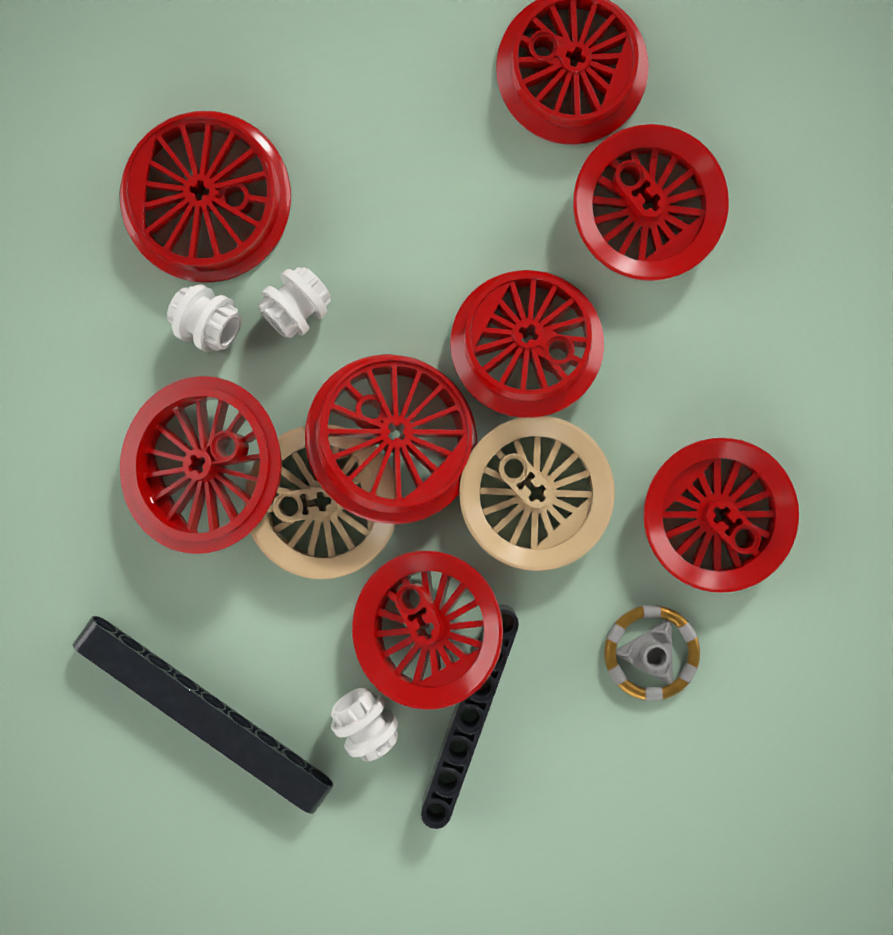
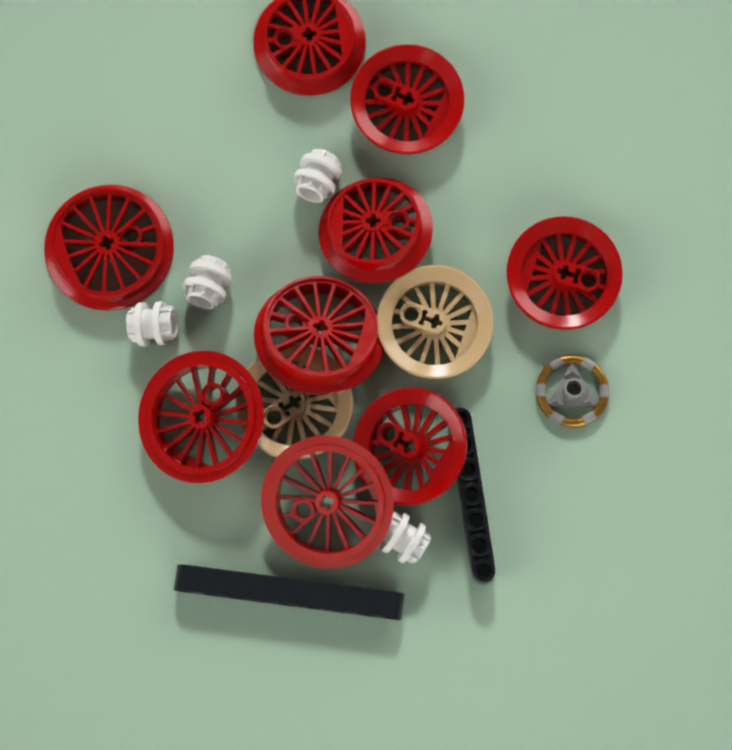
camera: 30 degrees left, 10 degrees down
(297, 642) = (377, 483): none -> red piece
(498, 236) = (317, 175): none -> white piece

